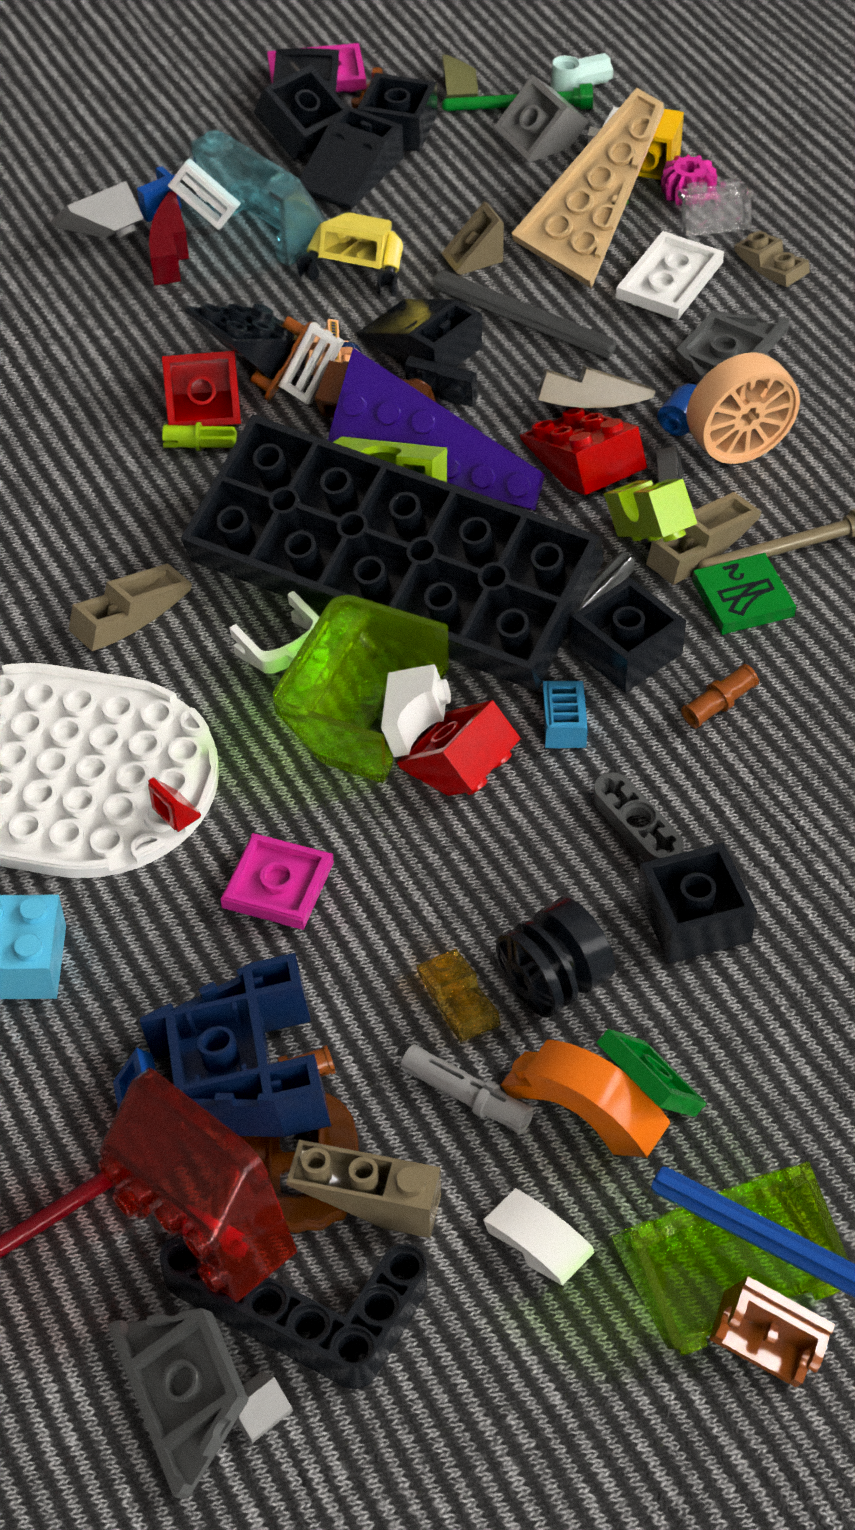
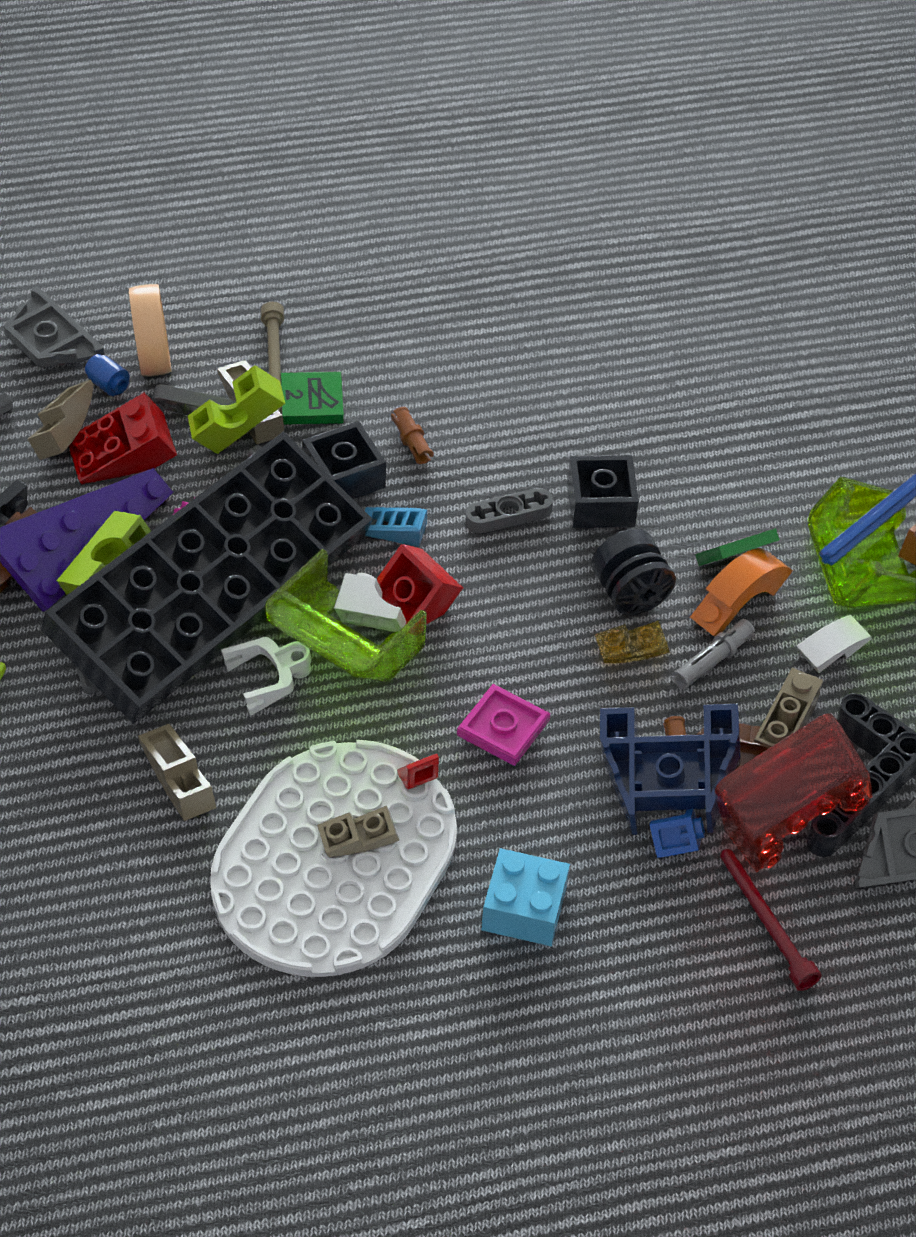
camera: 80 degrees left, 0 degrees up
(71, 771) = (356, 835): none -> dark tan slope

